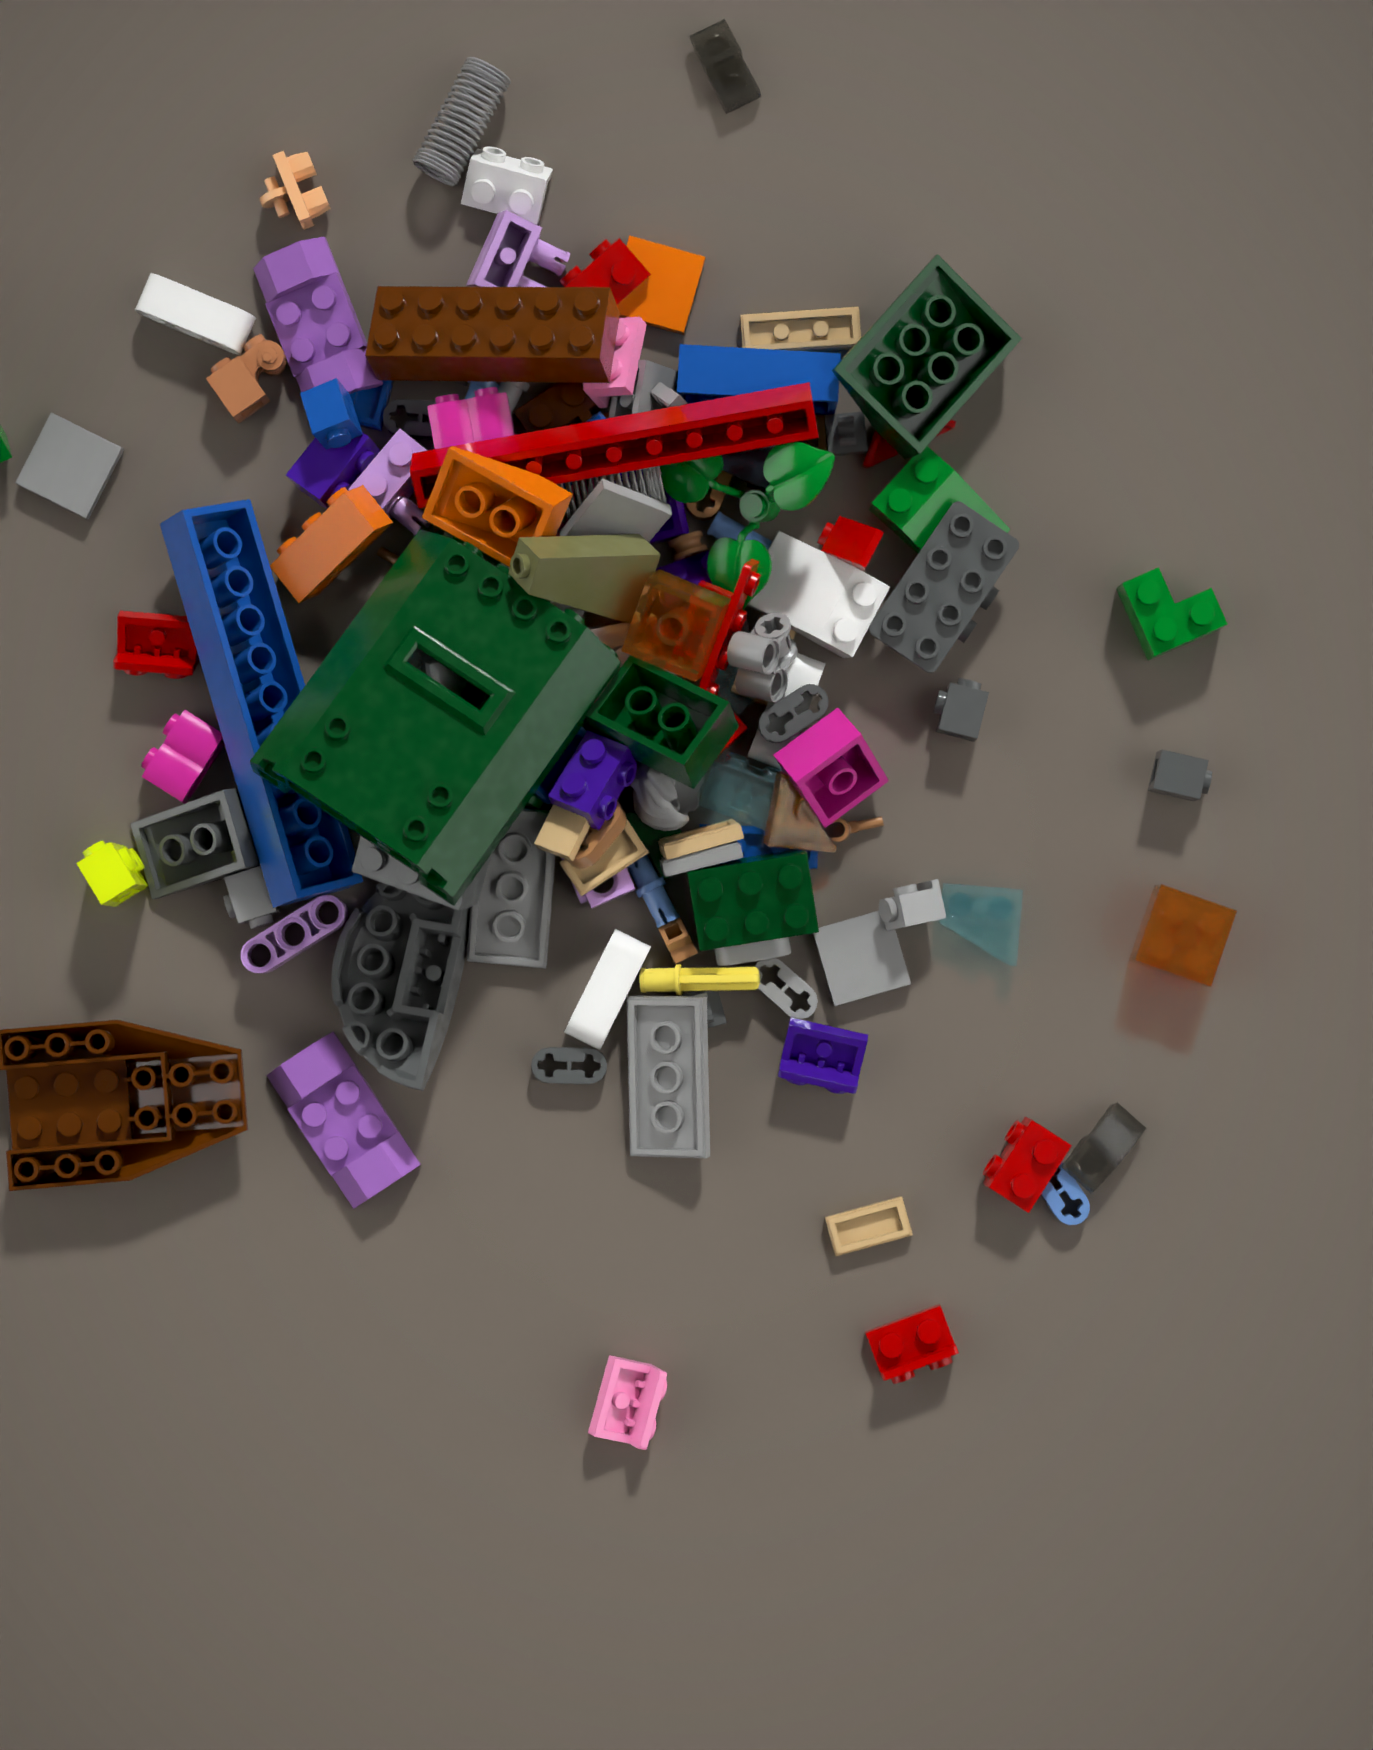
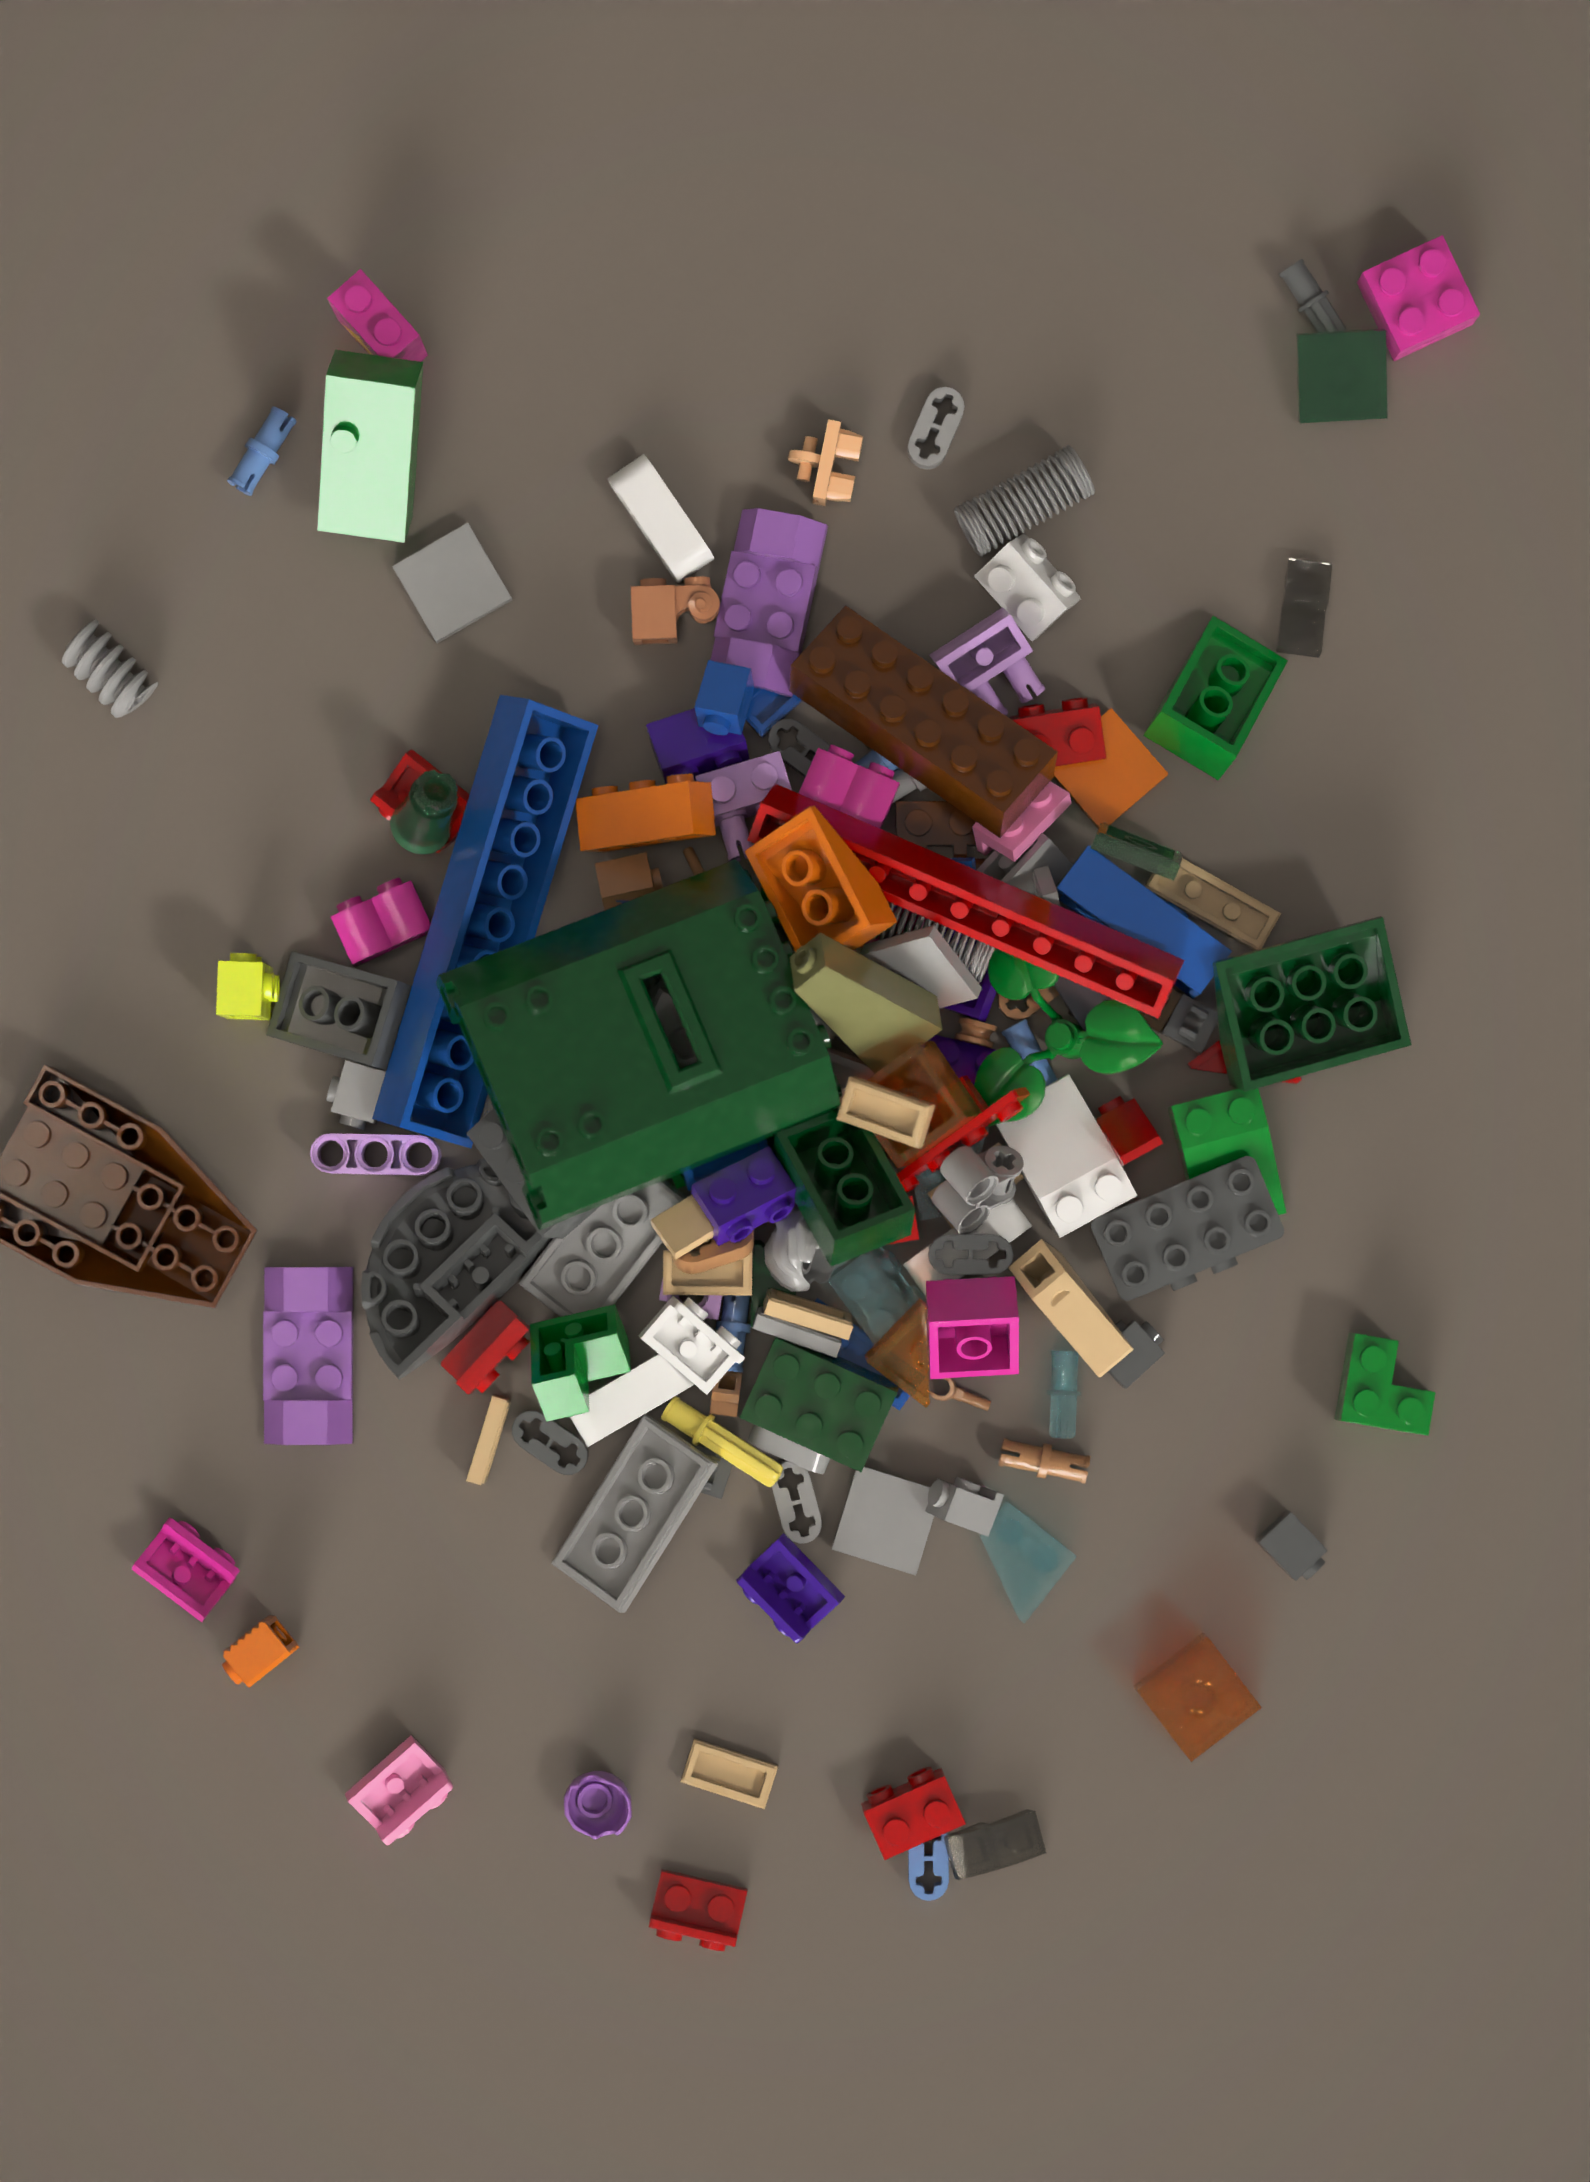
camera: 35 degrees right, 0 degrees up
(162, 651) = (425, 815): none -> clear green plant
(346, 600) = (626, 879): none -> medium nougat brick
(350, 113) = (926, 424): none -> light grey beam
(356, 1341) = (187, 1568): none -> dark pink bracket
(452, 1367) = (258, 1651): none -> orange brick
(473, 1024) = (485, 1346): none -> red bracket
(521, 1093) = (488, 1440): none -> tan tile
(543, 983) = (571, 1353): none -> green brick
(627, 919) = (691, 1344): none -> white bracket
(658, 644) = (885, 1112): none -> tan tile
(703, 177) = (1216, 698): none -> green slope
(720, 326) = (1137, 851): none -> clear green tile
(785, 1314) = (598, 1804): none -> medium lavender hair
(895, 703) = (1070, 1307): none -> tan slope
(932, 774) = (1063, 1394): none -> clear light blue axle
(951, 834) = (1044, 1460): none -> medium nougat pin

